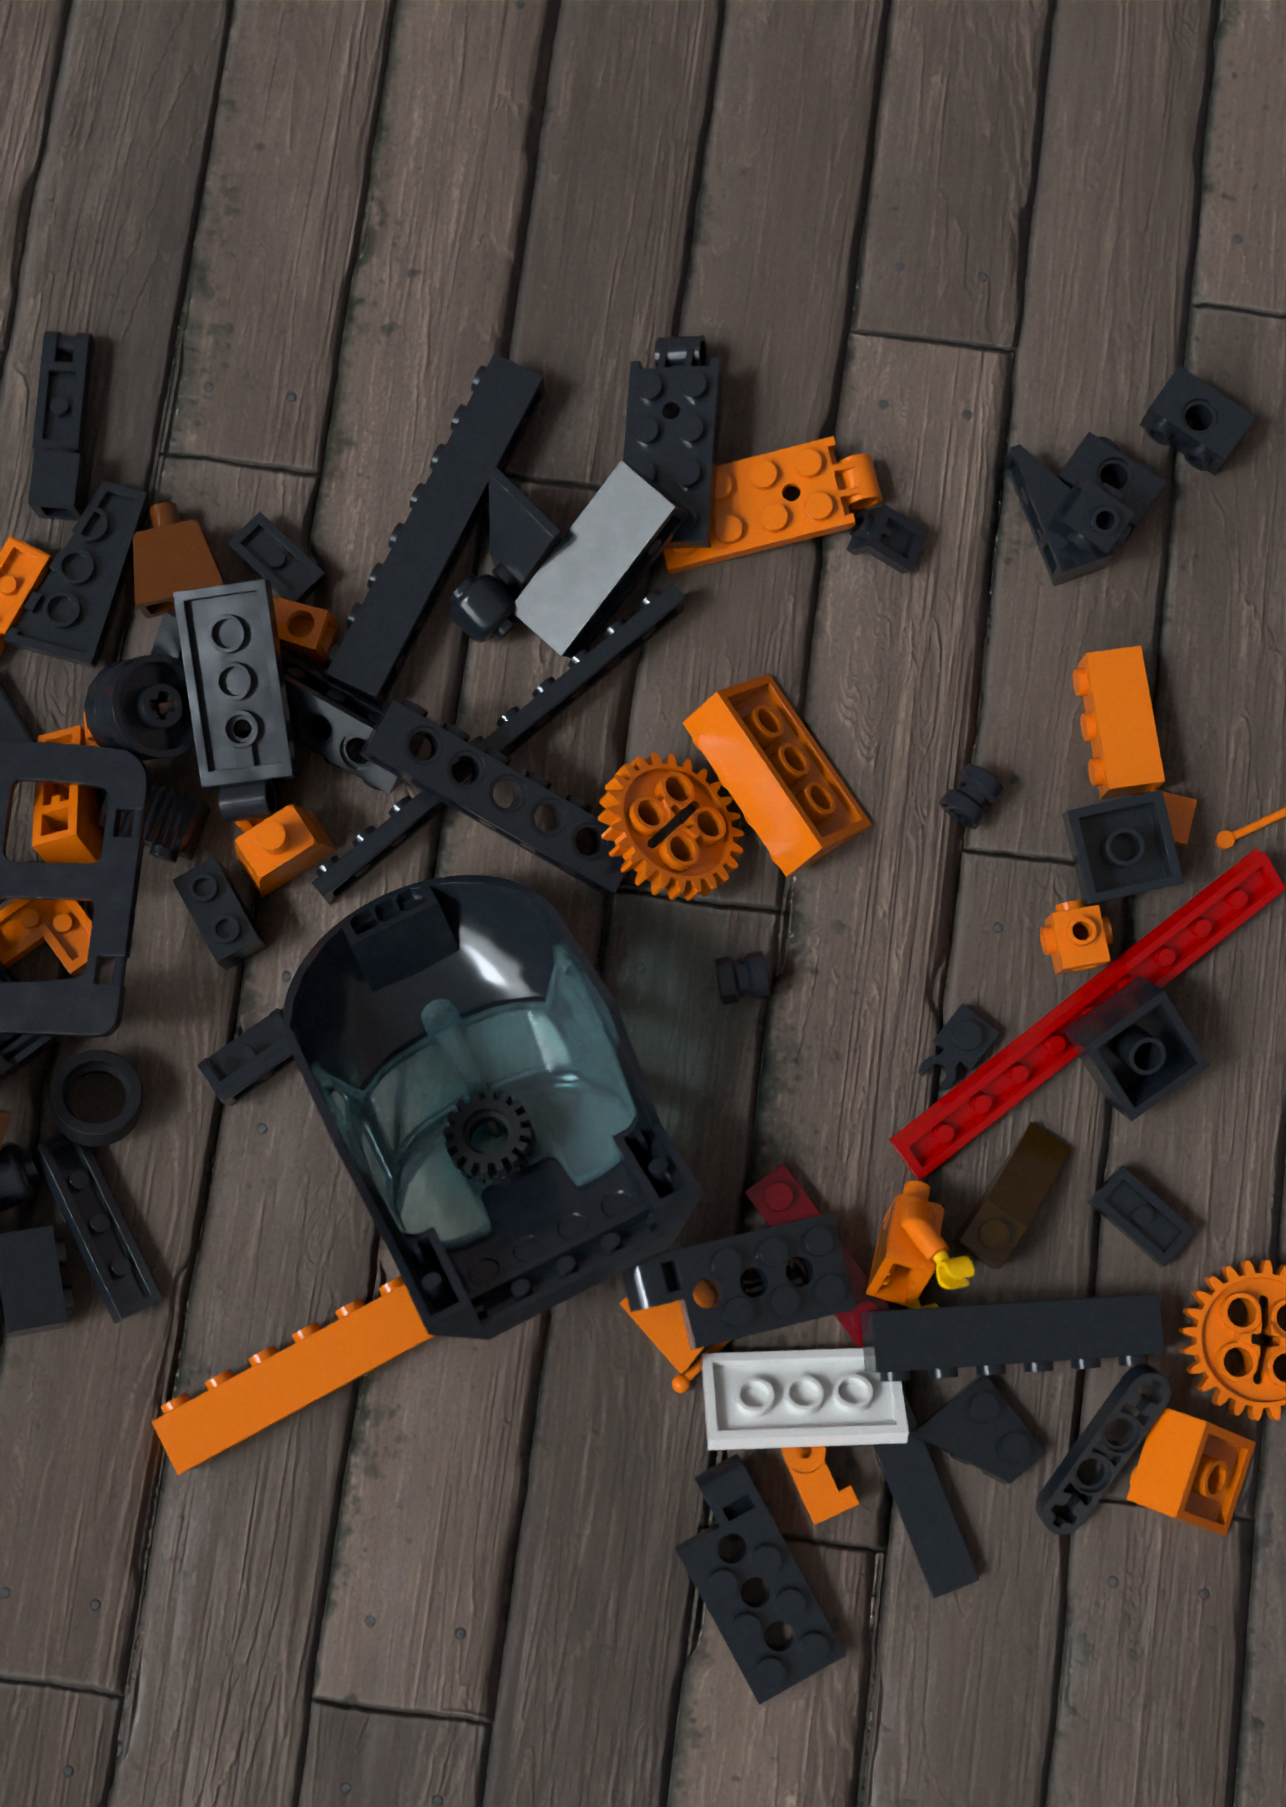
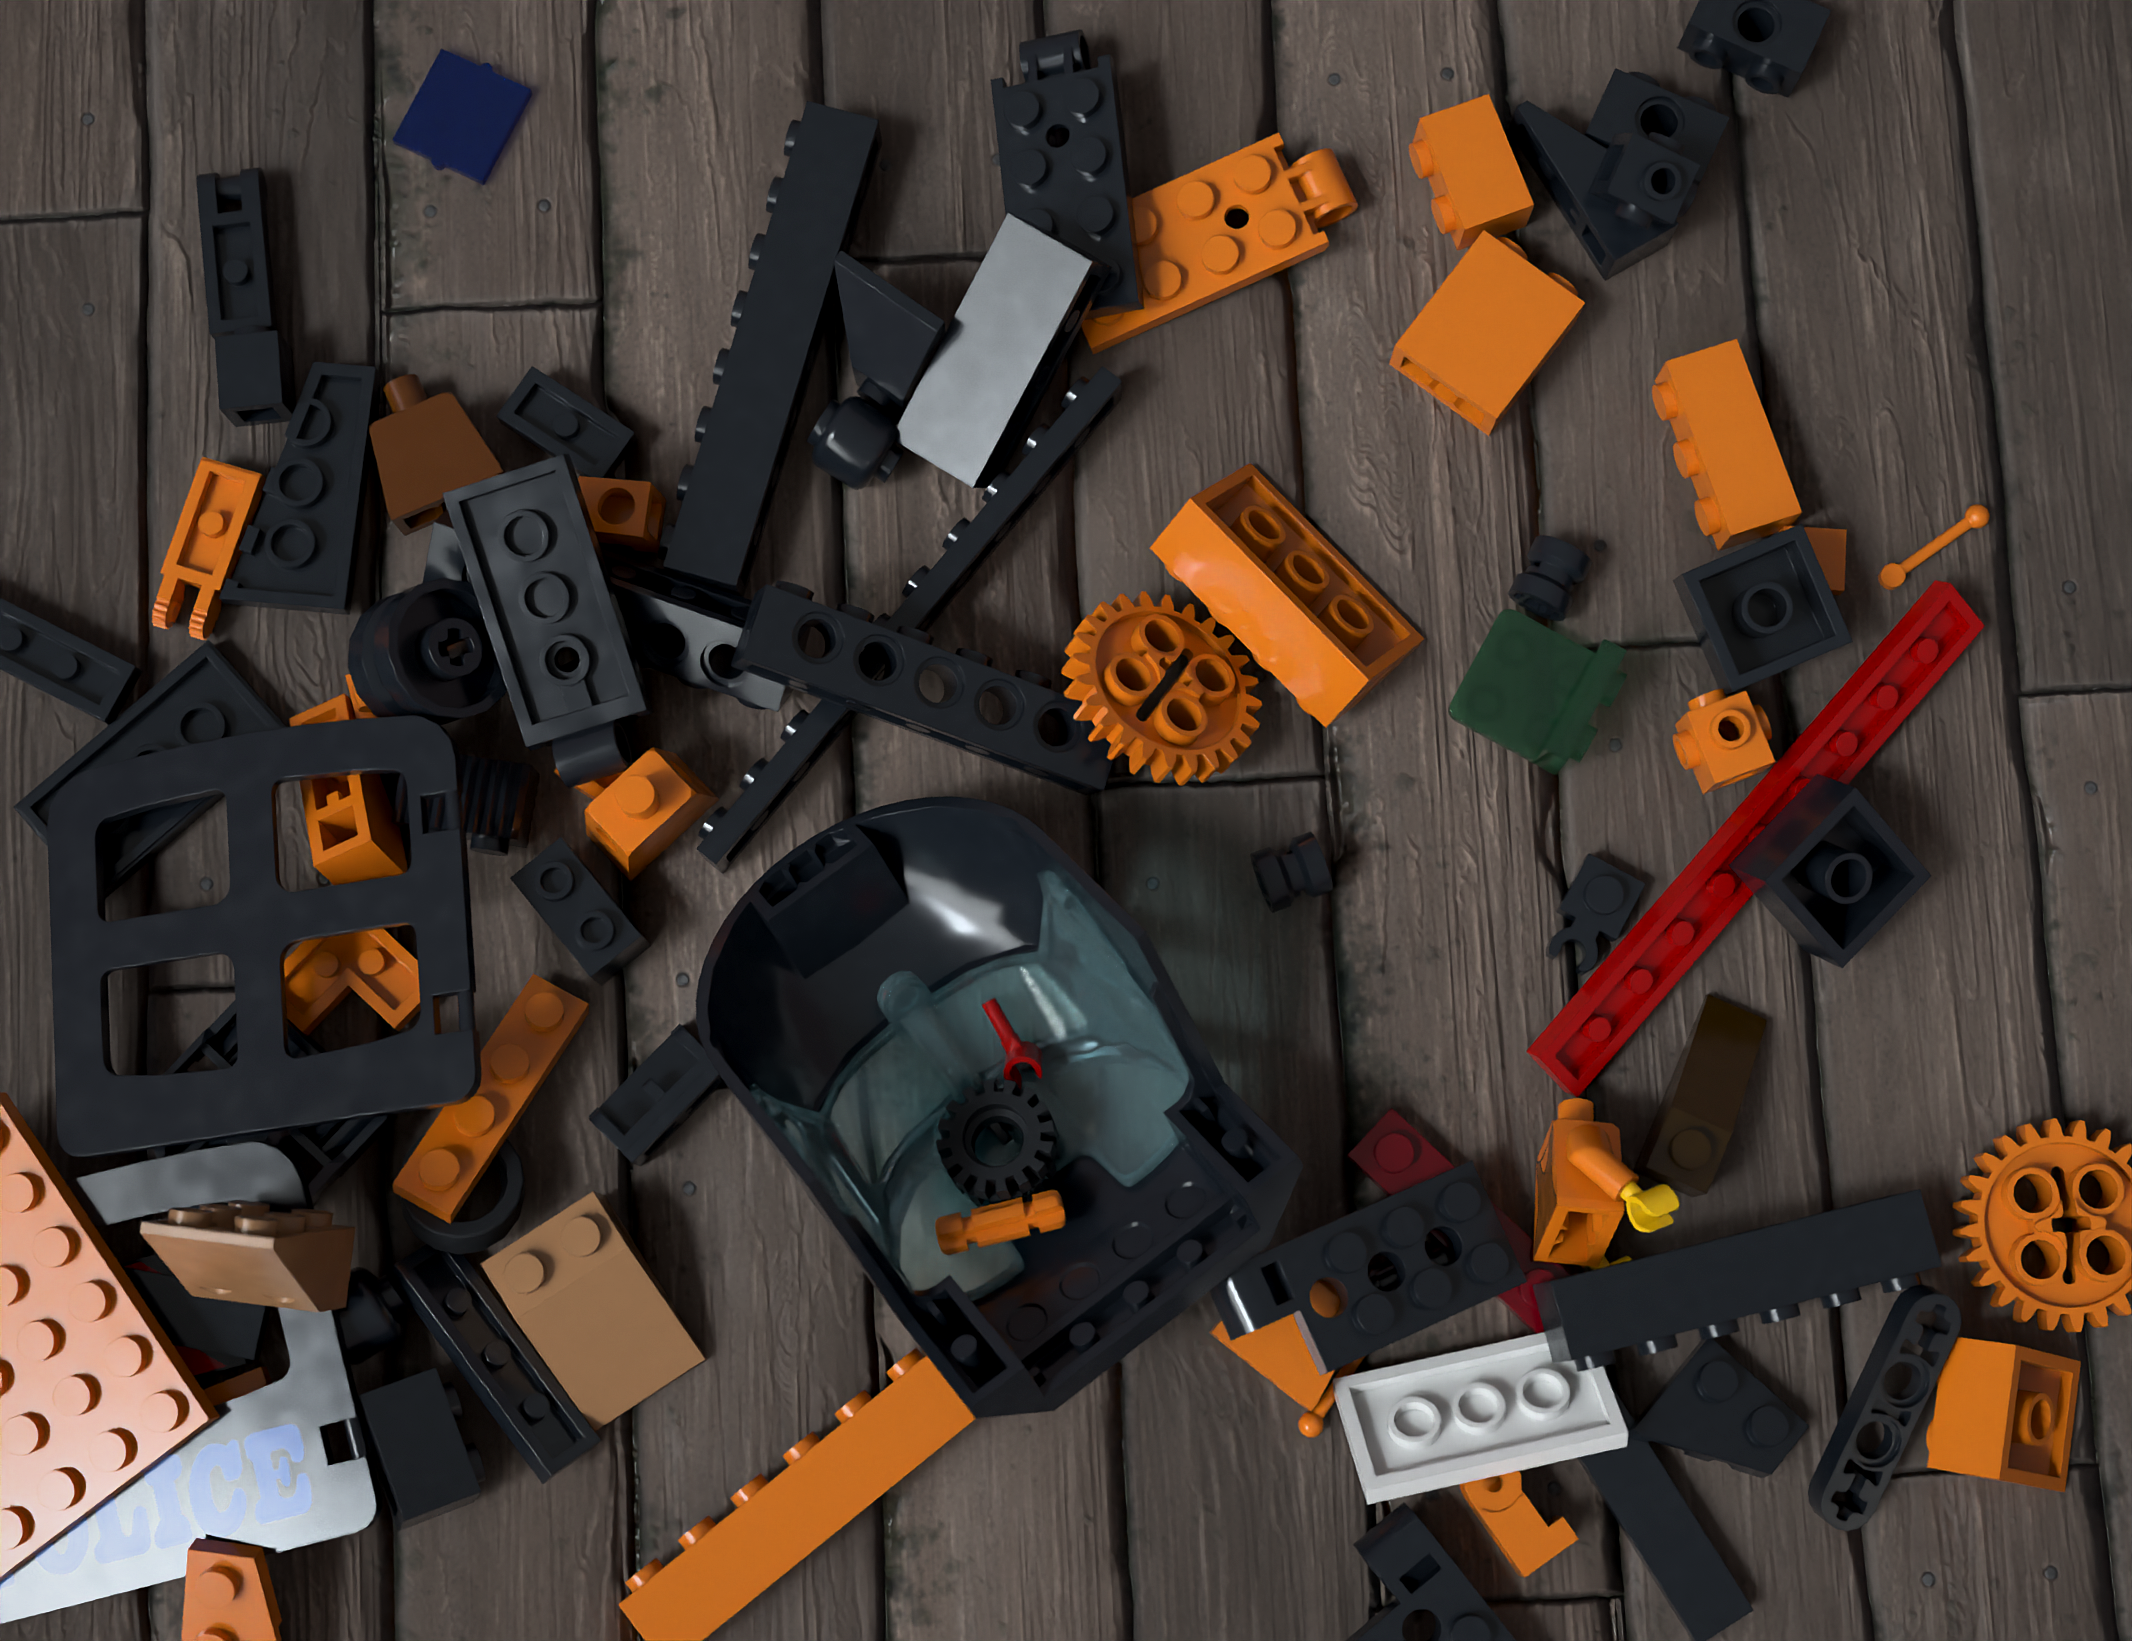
camera: 10 degrees left, 0 degrees up
(144, 1025) = (513, 1069): none -> orange plate
(175, 1204) = (594, 1310): none -> medium nougat slope
(245, 322) = (462, 116): none -> clear blue piece
(479, 1195) = (1000, 1222): none -> orange axle
(516, 1071) = (1015, 1049): none -> red hand
(887, 537) = (1374, 255): black bracket -> none
(946, 877) = (1537, 690): none -> clear green bracket
(959, 608) = (1487, 331): none -> orange brick
(969, 490) = (1470, 172): none -> orange brick
(1141, 1216) = (1876, 1091): black plate -> none

